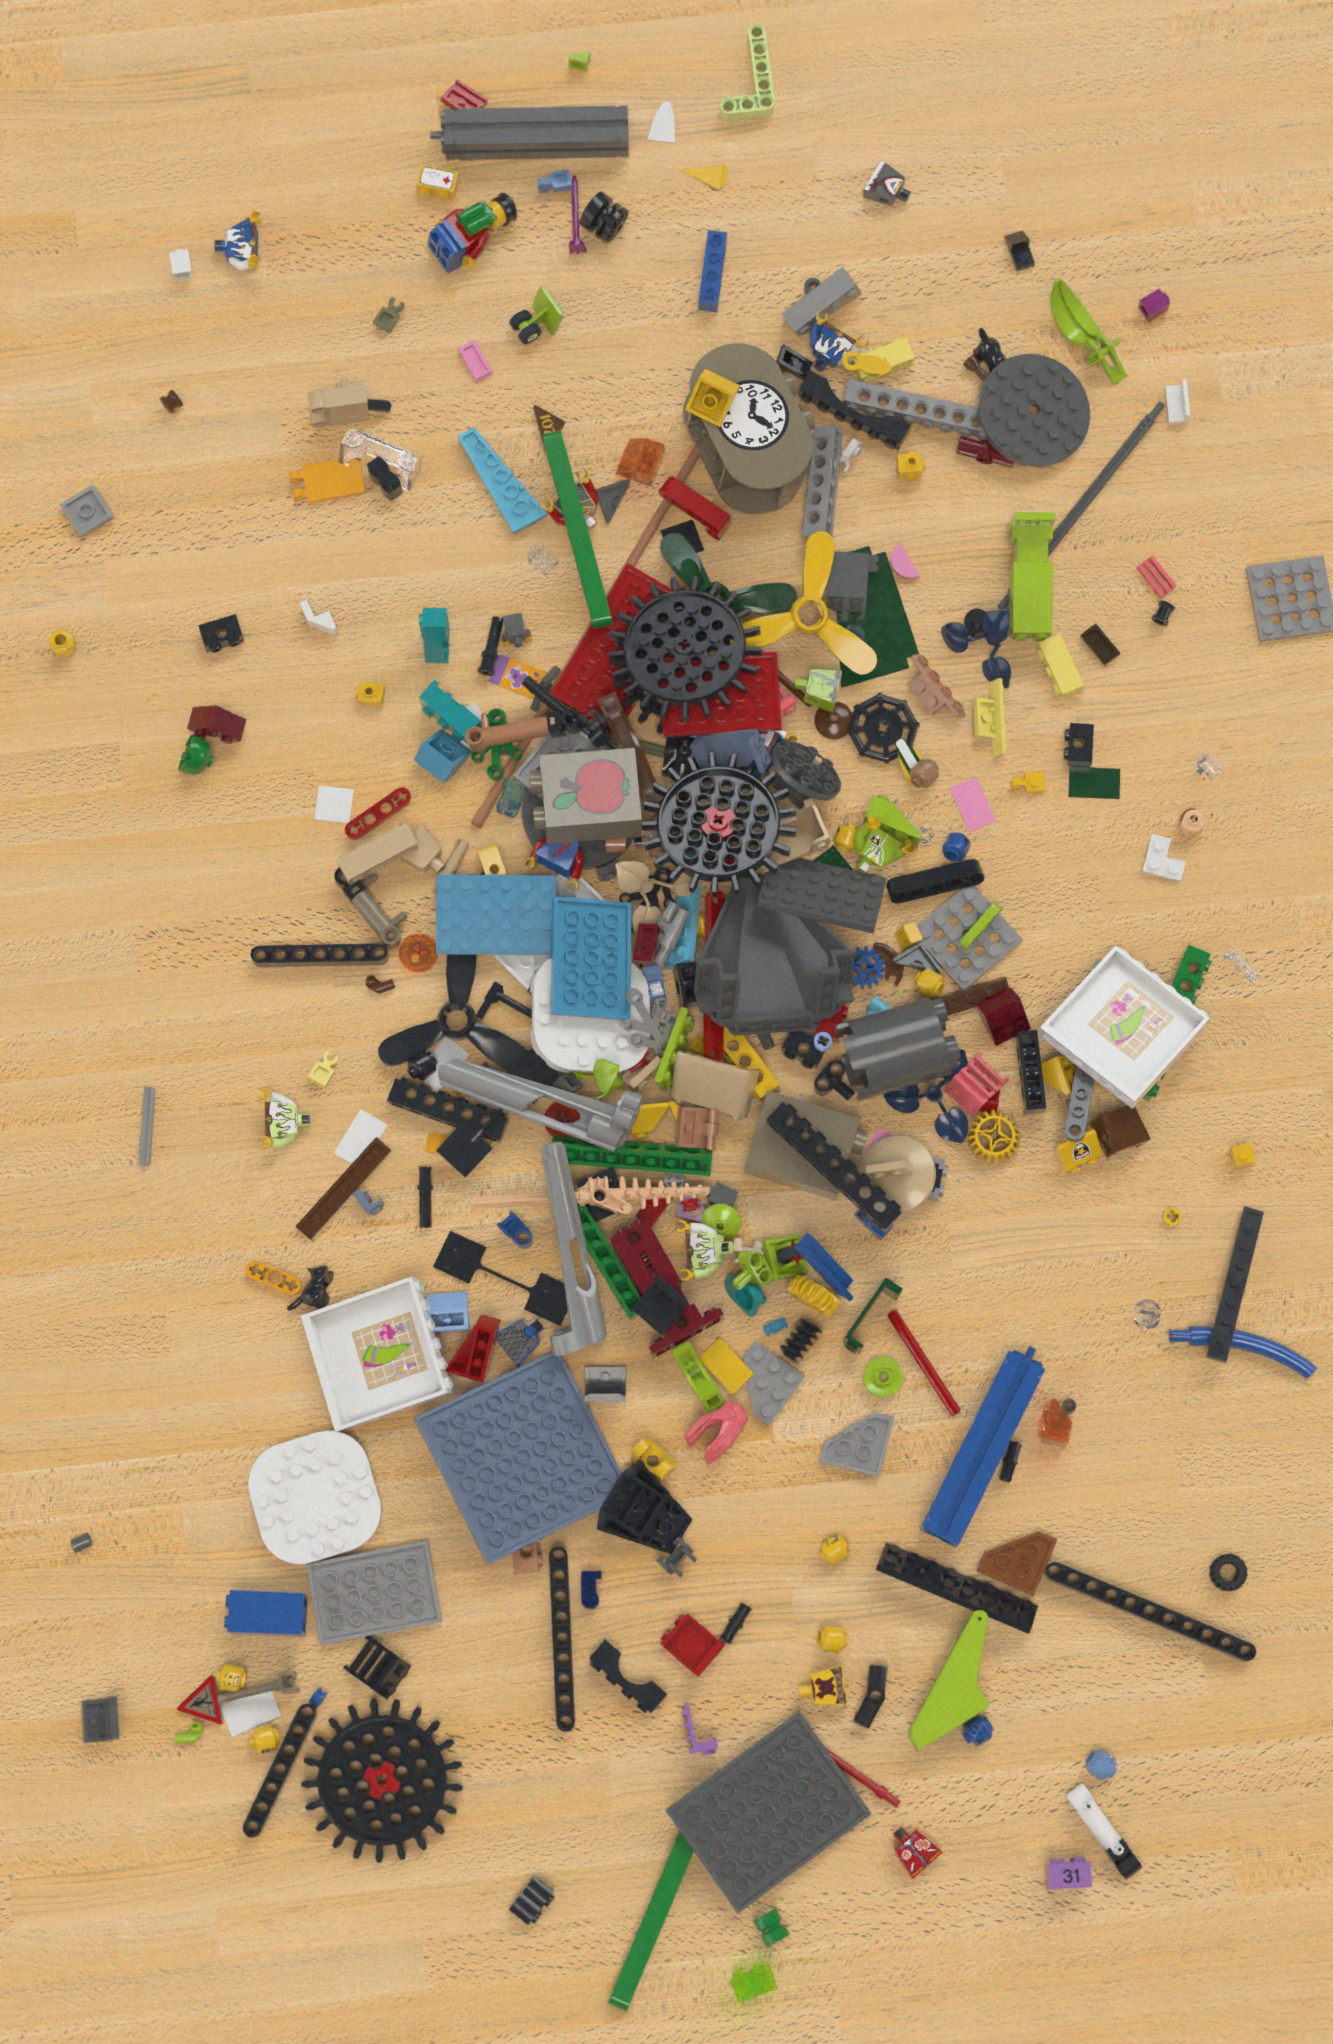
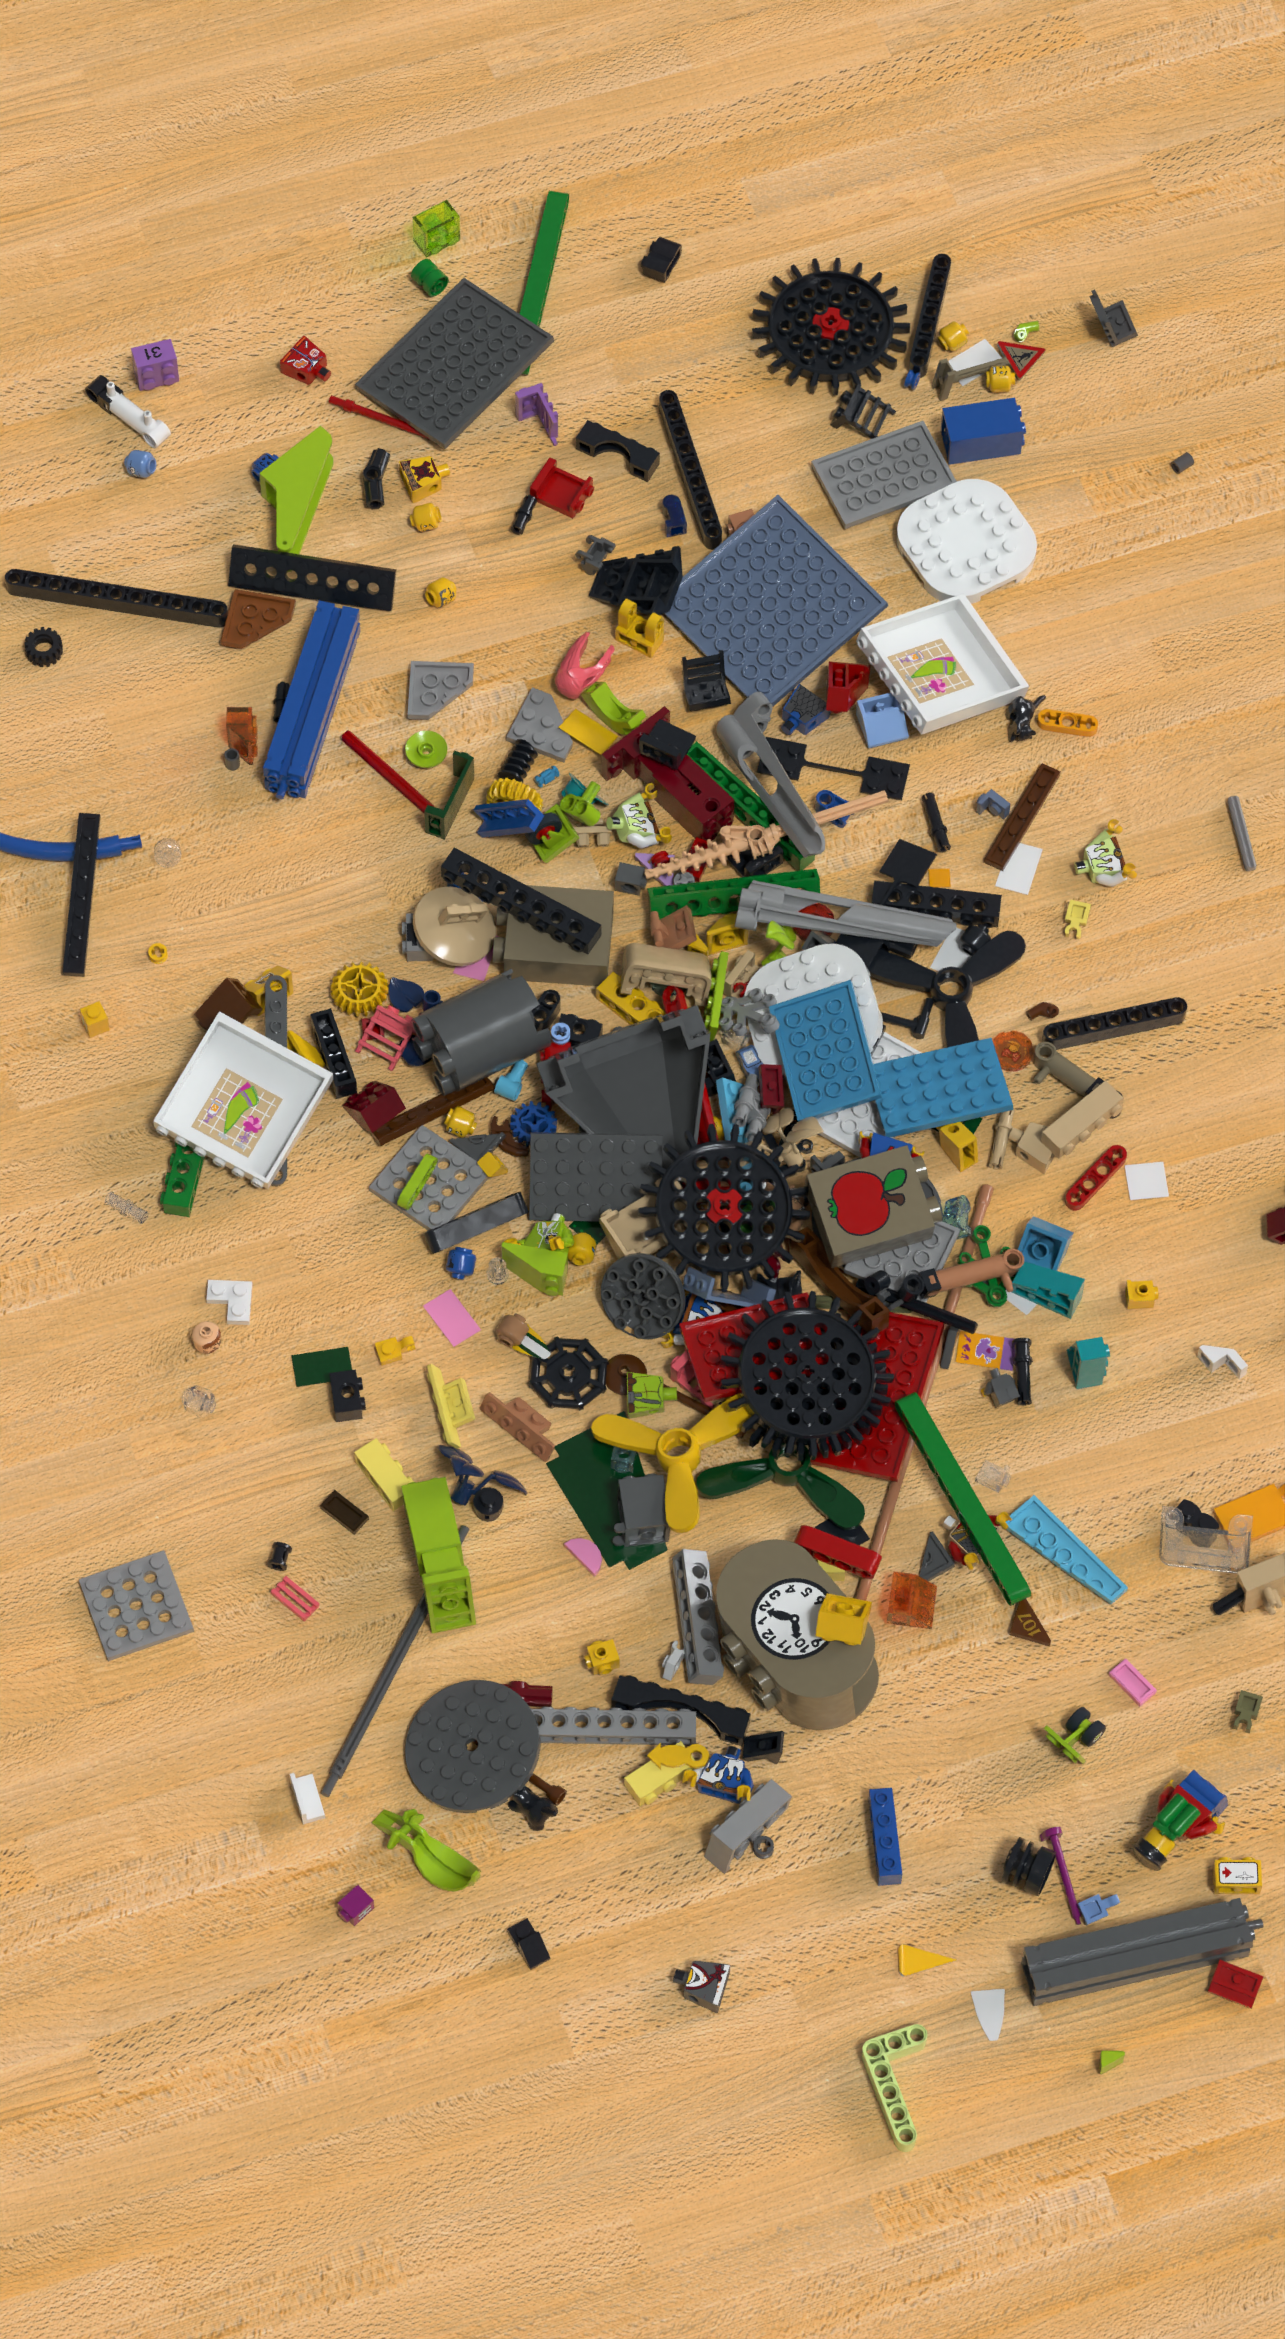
camera: 165 degrees right, 15 degrees down
(725, 1215) = (625, 854): lime dish -> none

